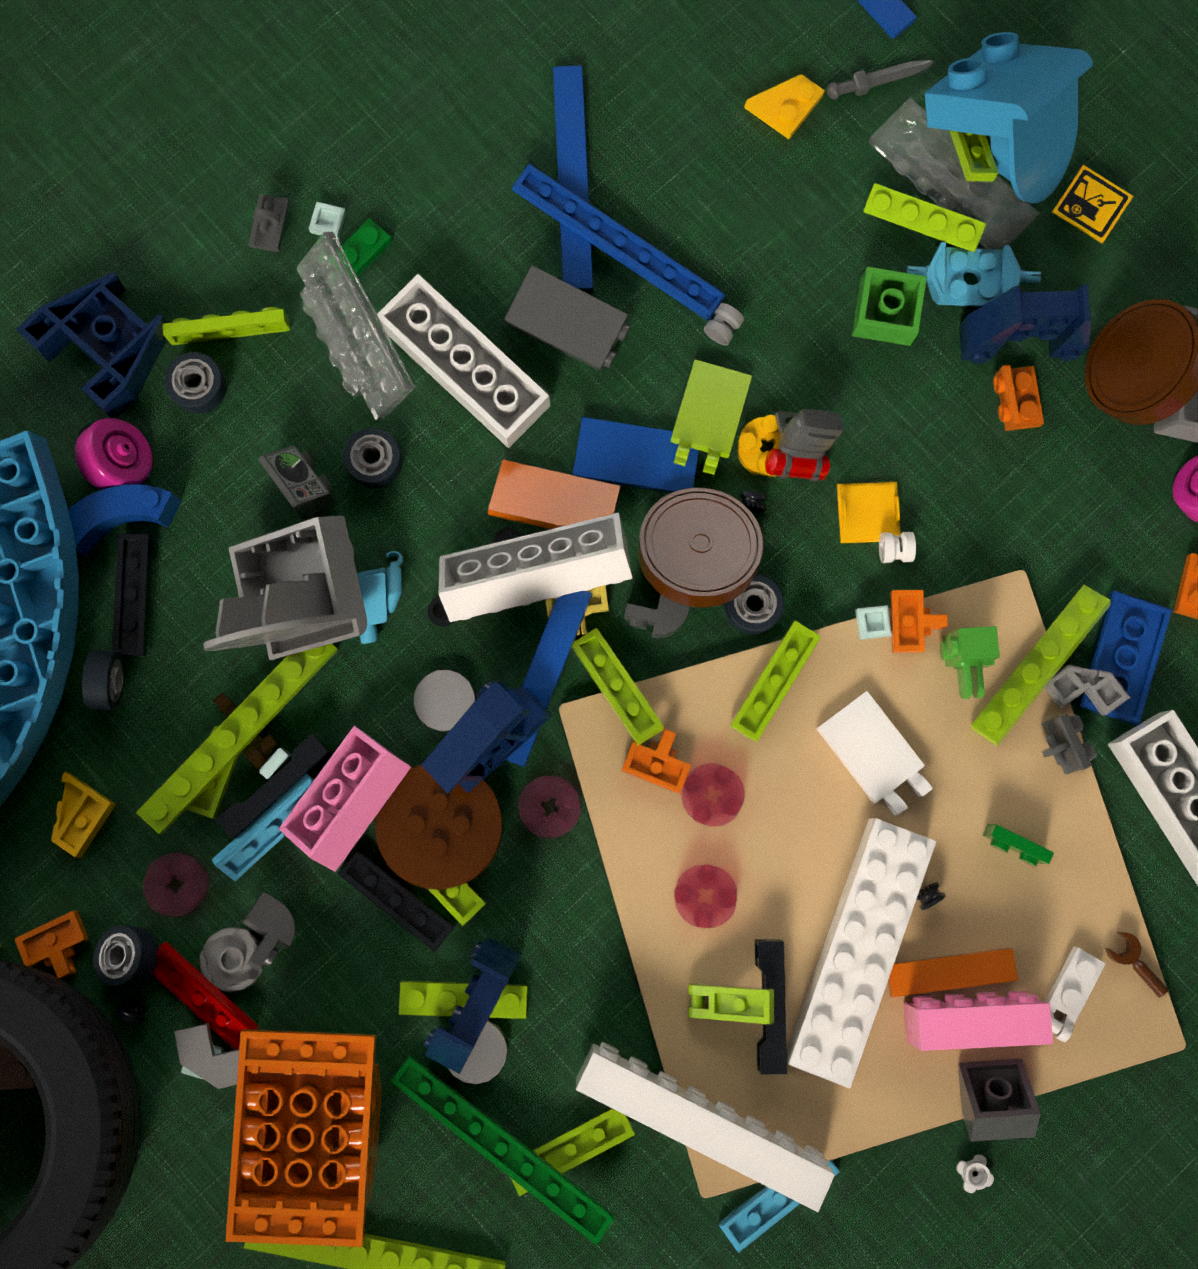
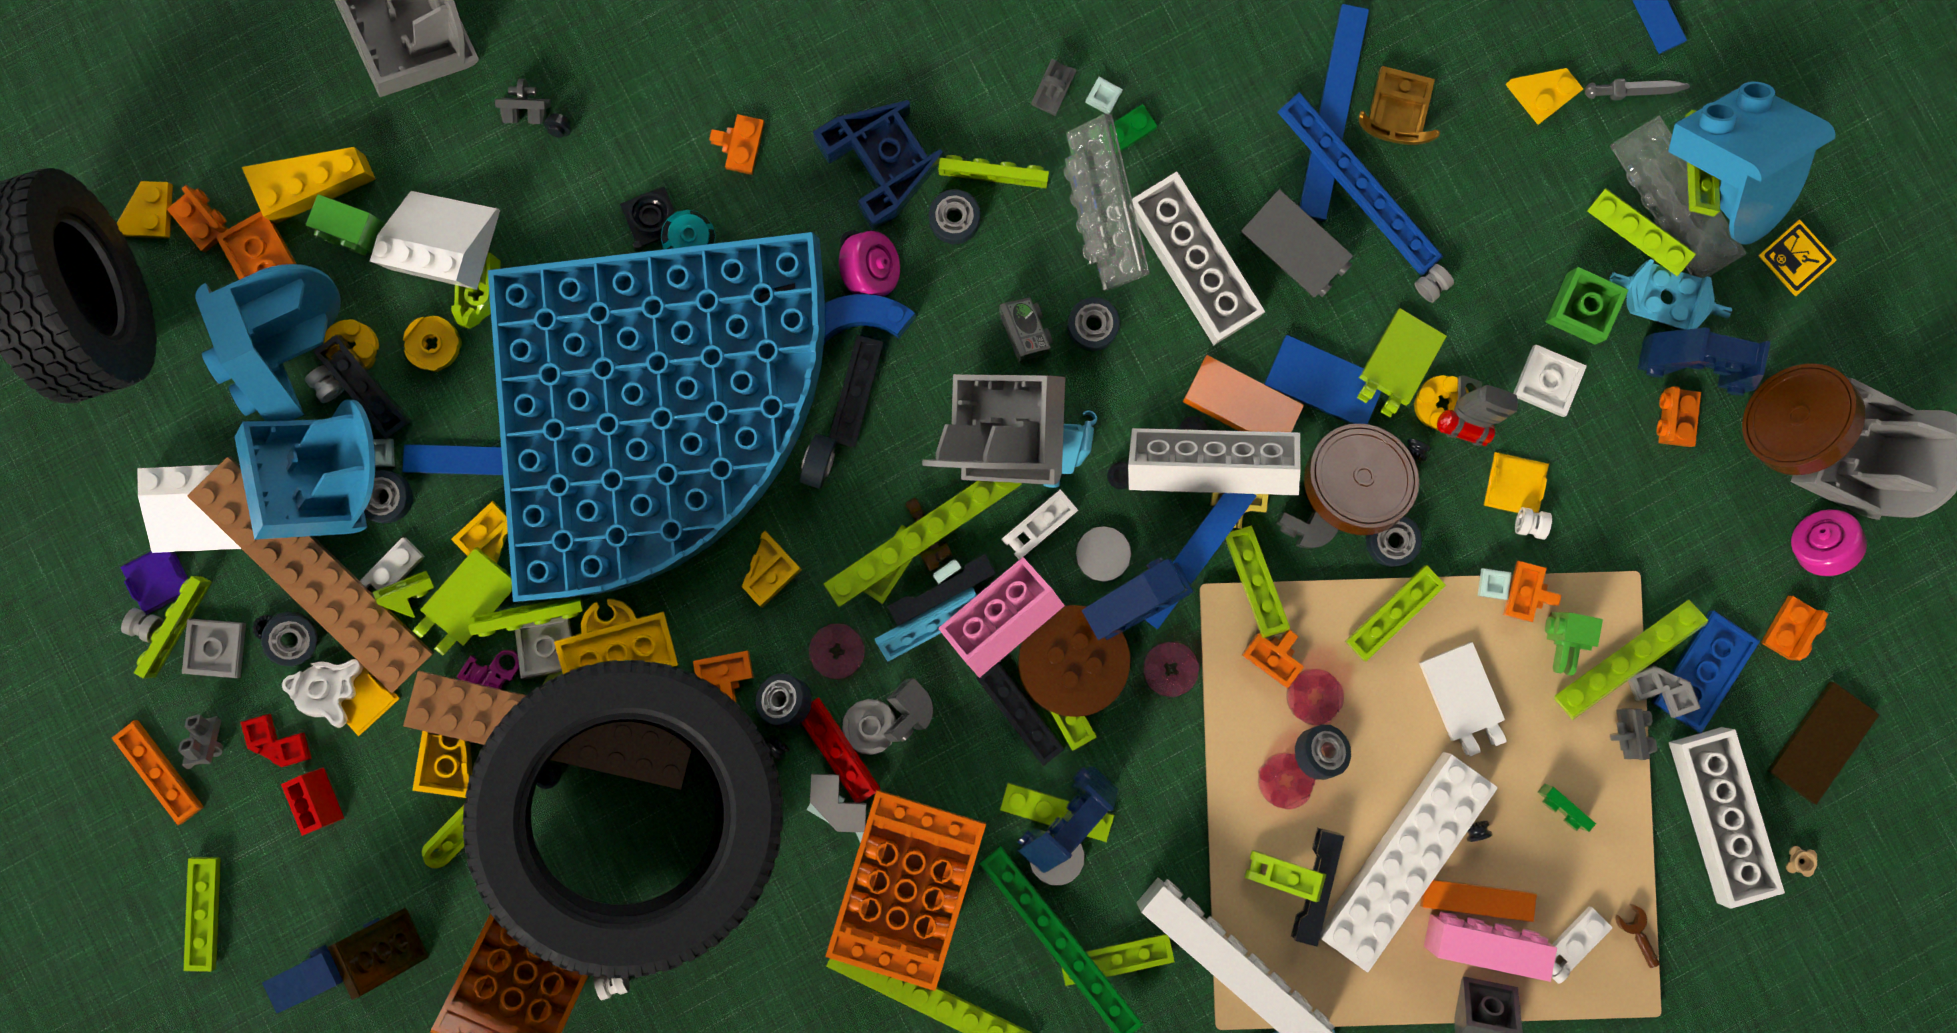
camera: 20 degrees right, 5 degrees up
(367, 685) = (1040, 523): none -> white plate
(639, 156) = (1399, 108): none -> pearl gold piece
(725, 864) = (1334, 745): none -> wheel
(873, 395) = (1549, 380): none -> white tile

